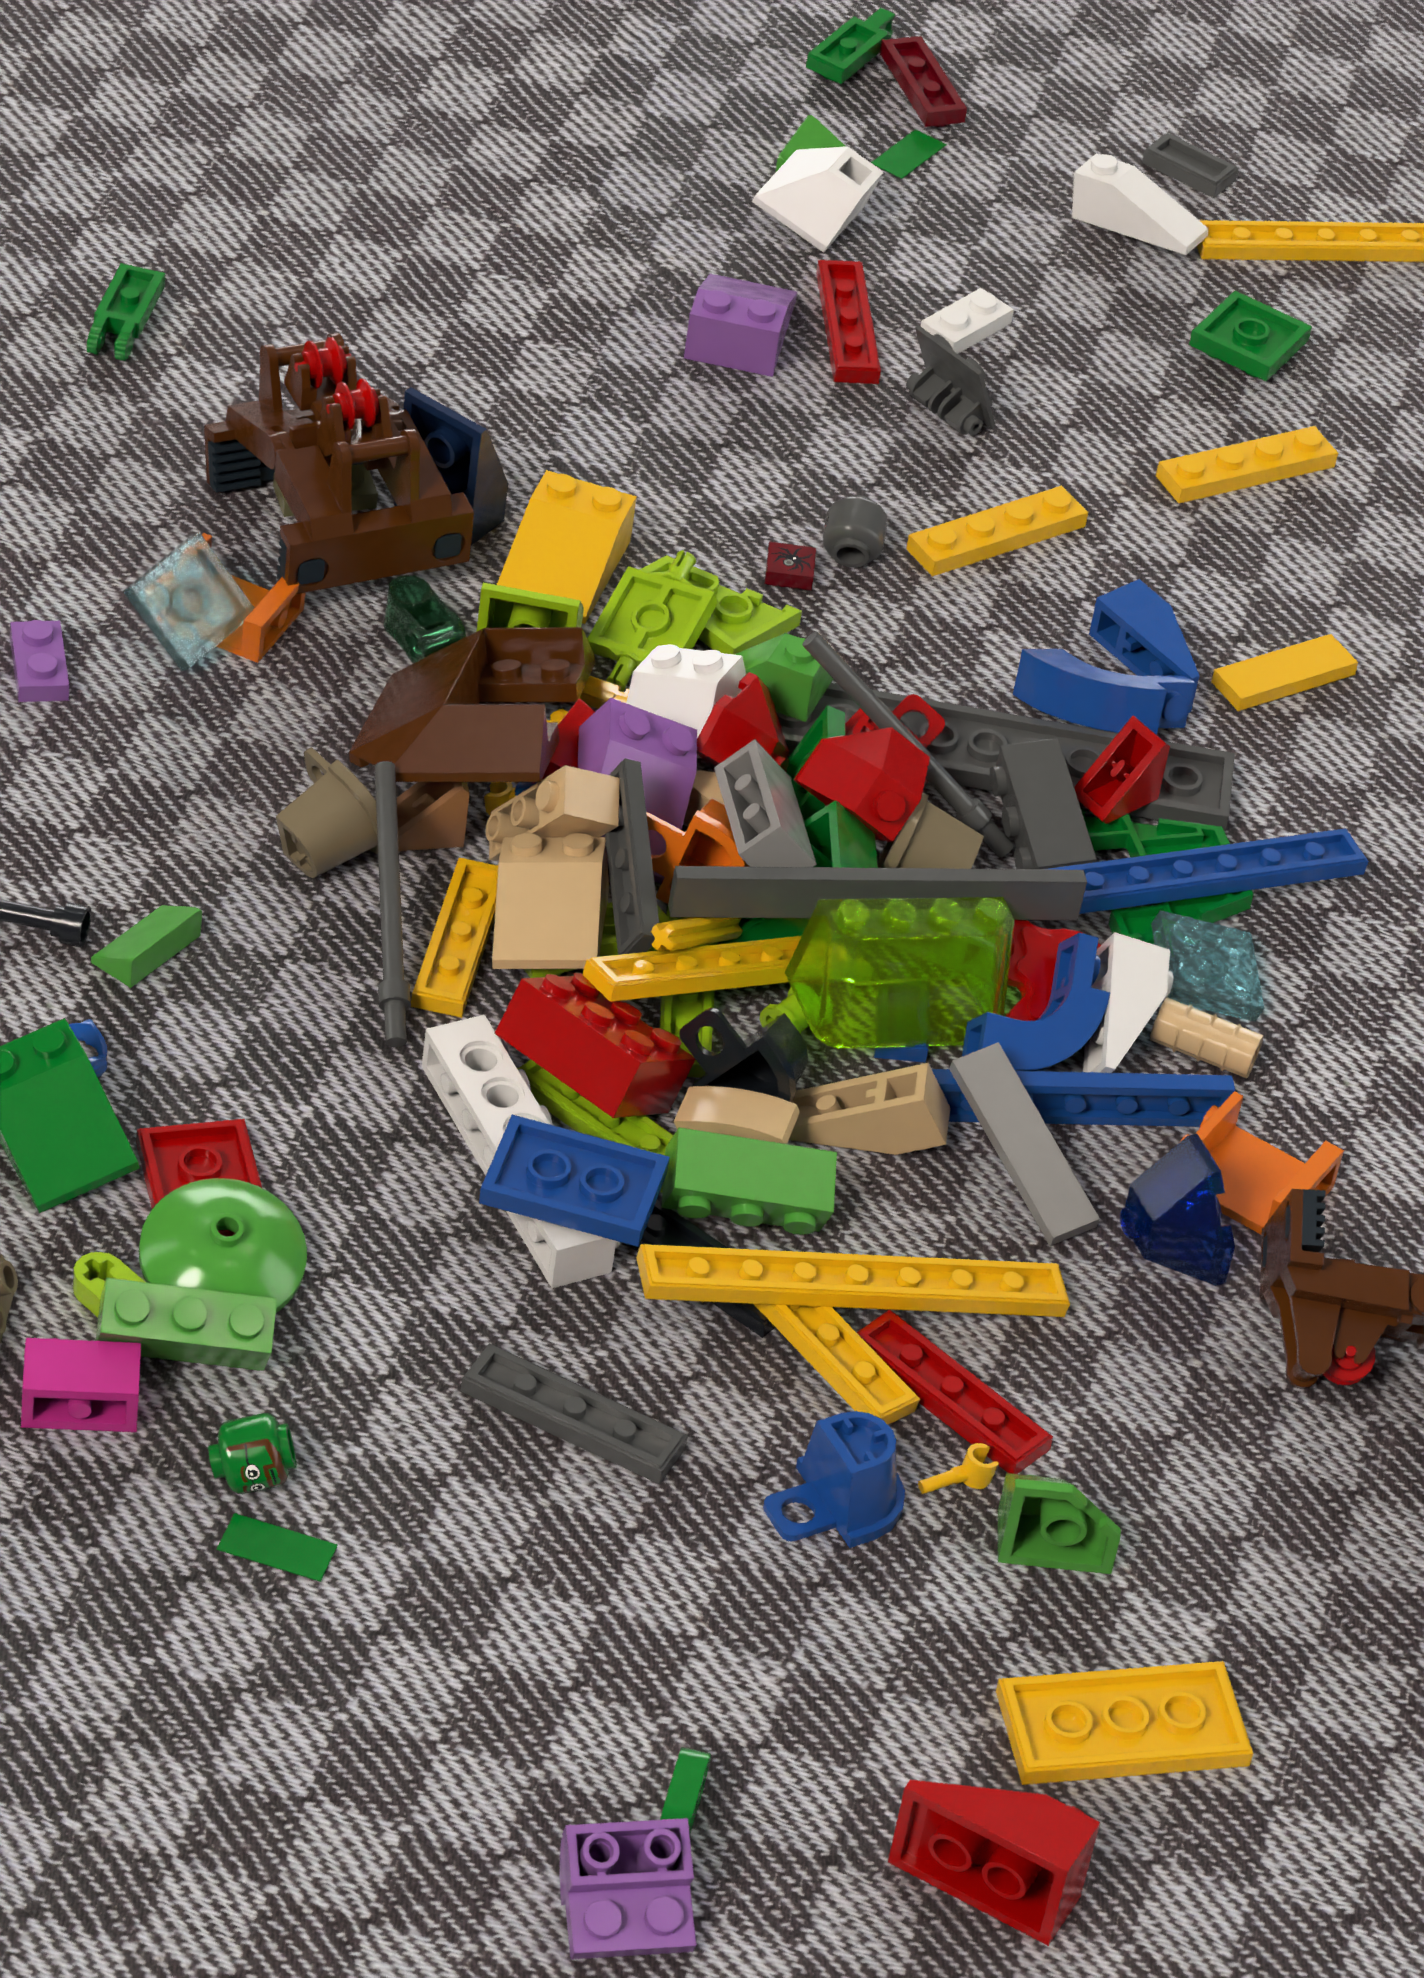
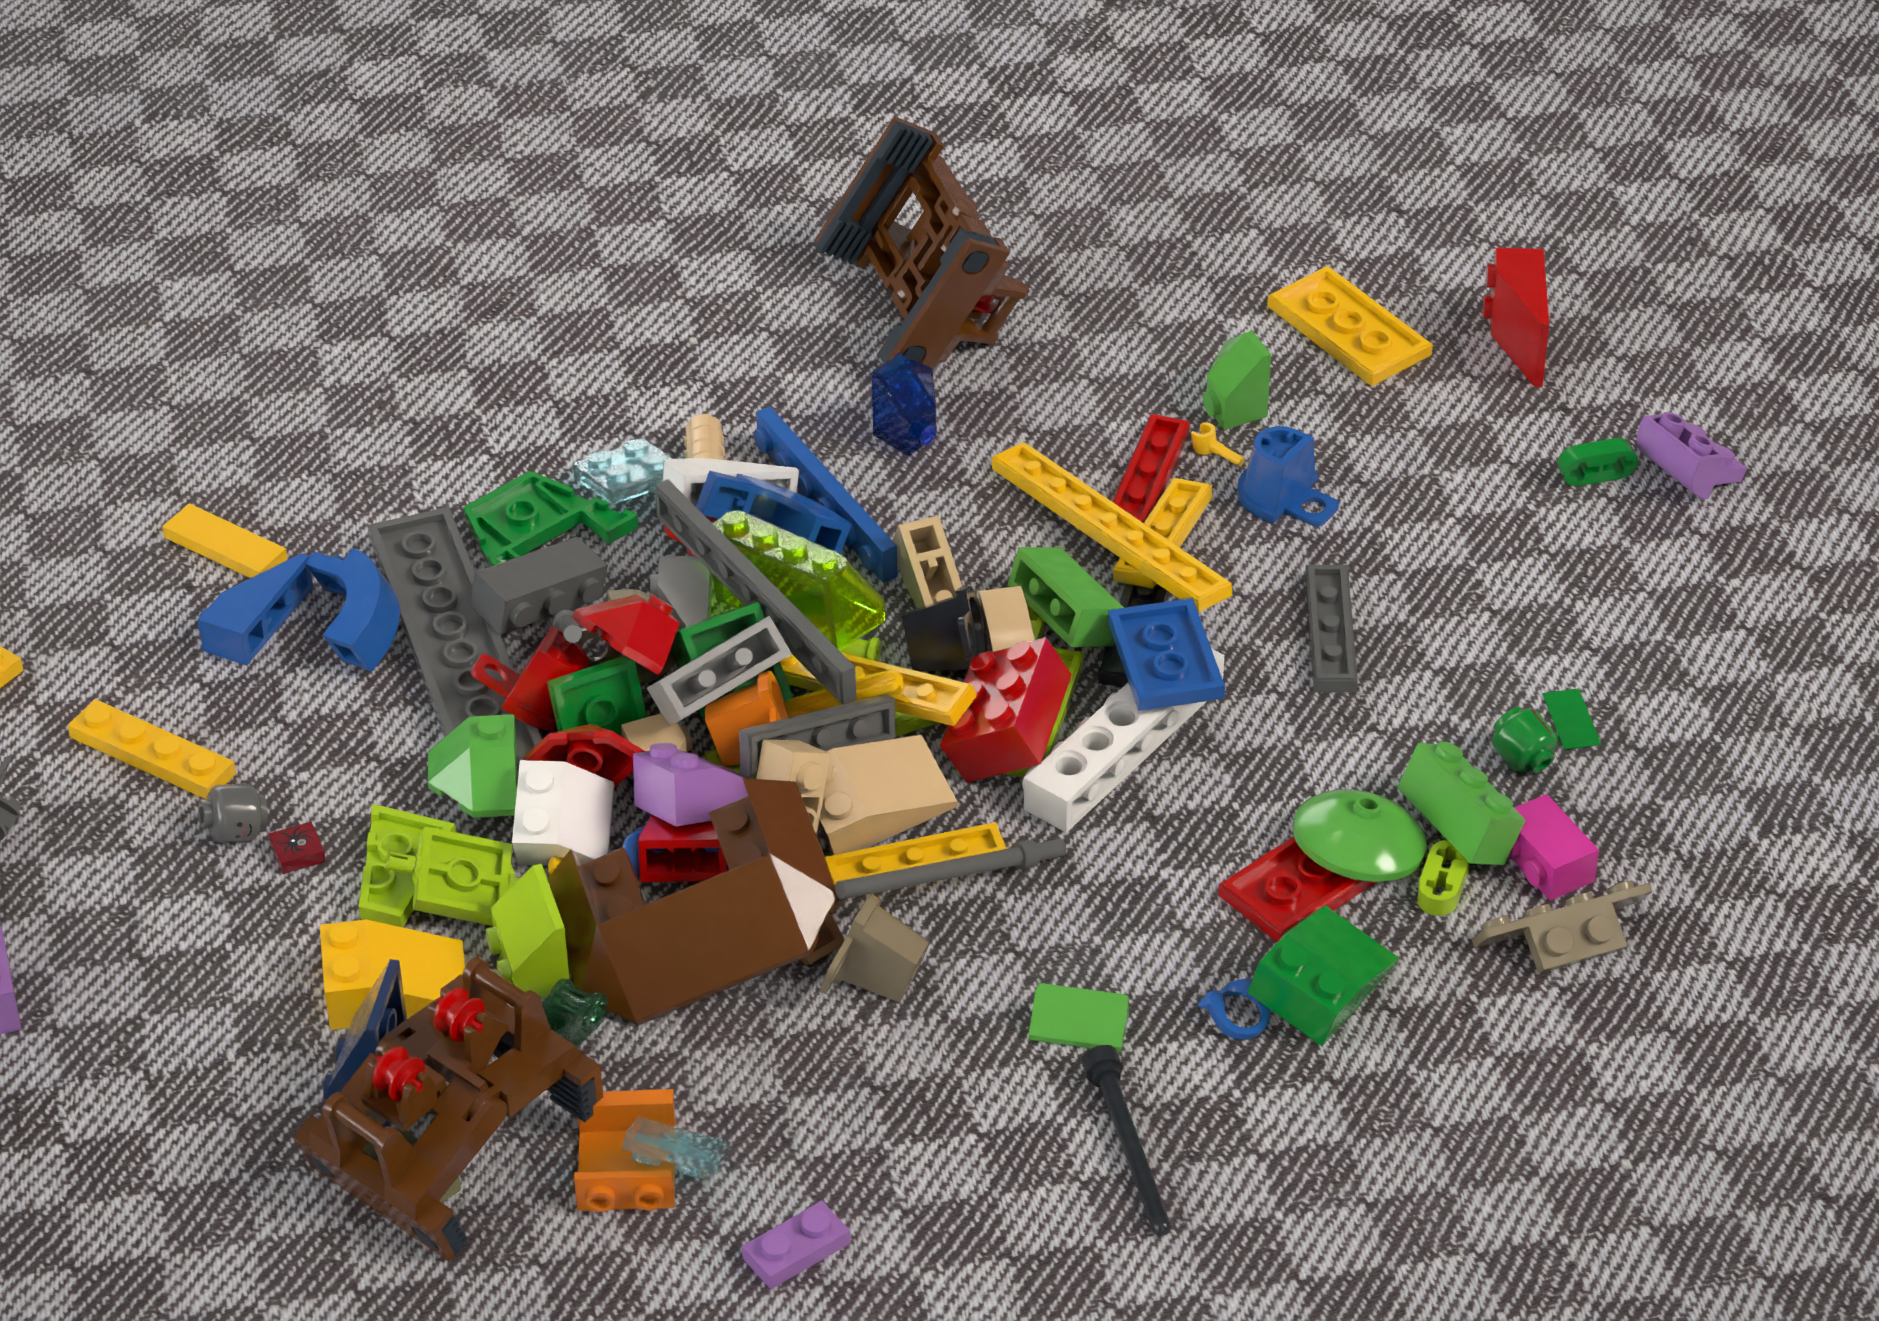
camera: 110 degrees left, 0 degrees up
(1024, 1144) = (905, 490): light grey tile -> none
(1125, 773) = (464, 544): red slope -> none
(1219, 870) = (554, 500): blue tile -> none
(1257, 1173) = (823, 392): orange panel -> none

